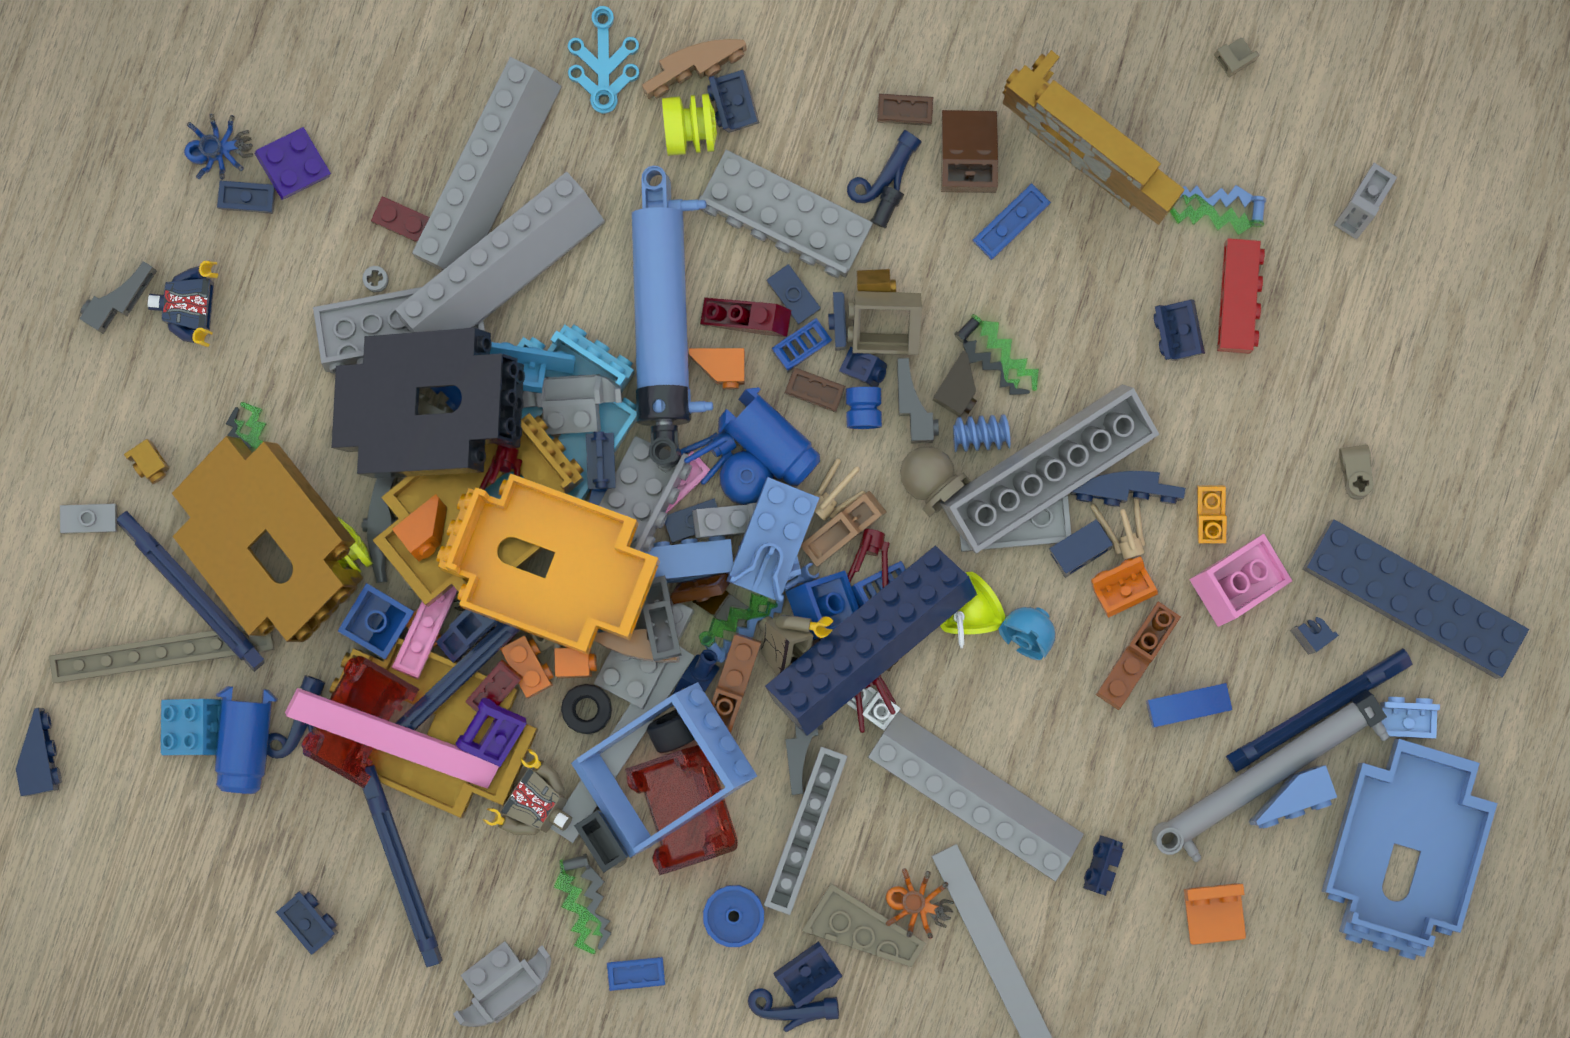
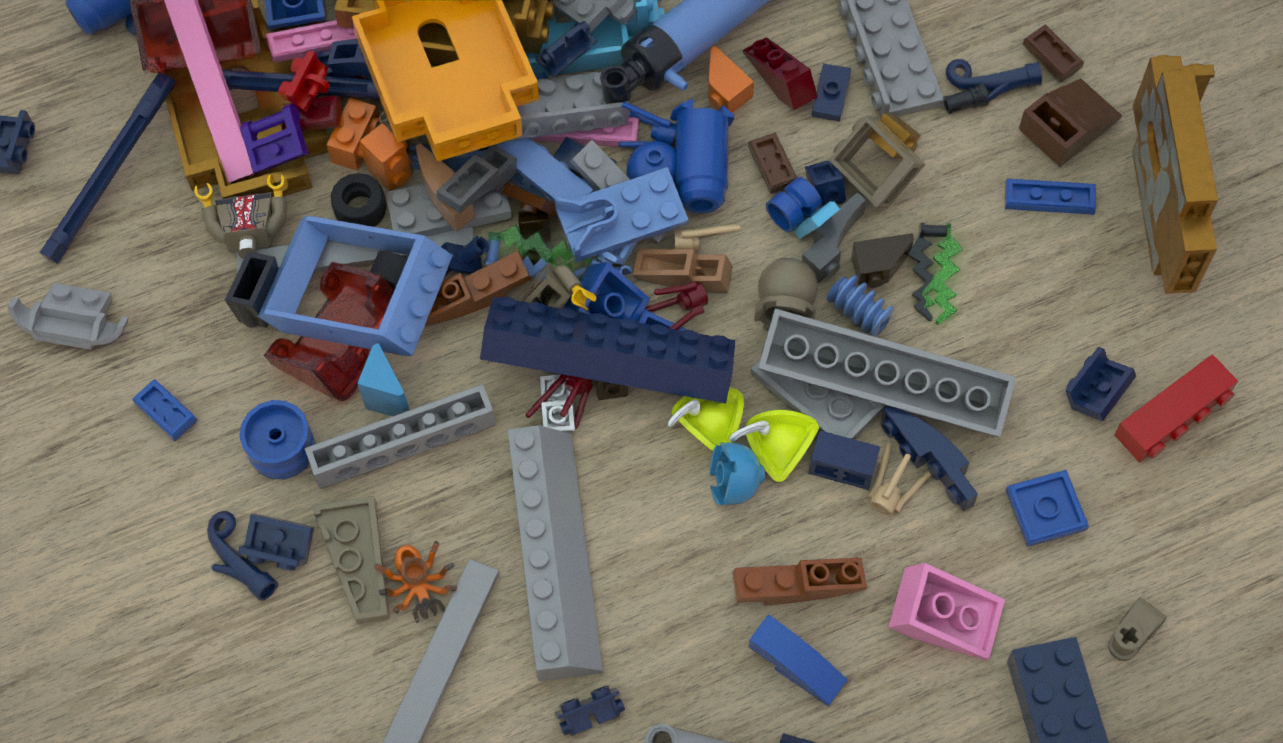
camera: 50 degrees right, 20 degrees down
(474, 673) = (307, 82): none -> red hips
(585, 914) = (185, 333): piece -> none
(758, 813) = (380, 387): none -> dark azure slope
(787, 342) = (800, 118): blue slope -> none
(796, 755) = (470, 375): dark grey slope -> none
(837, 321) = (838, 133): dark blue plate -> none
(895, 406) = (816, 219): none -> medium azure tile
(1030, 579) = (779, 439): none -> neon yellow hat
(1123, 586) = (846, 518): orange bracket -> none
(1211, 513) = (977, 542): light orange slope -> none
(1229, 447) = (1047, 508): none -> blue plate
(1239, 224) = (1218, 327): piece -> none
(1313, 637) = (959, 715): dark blue hinge -> none

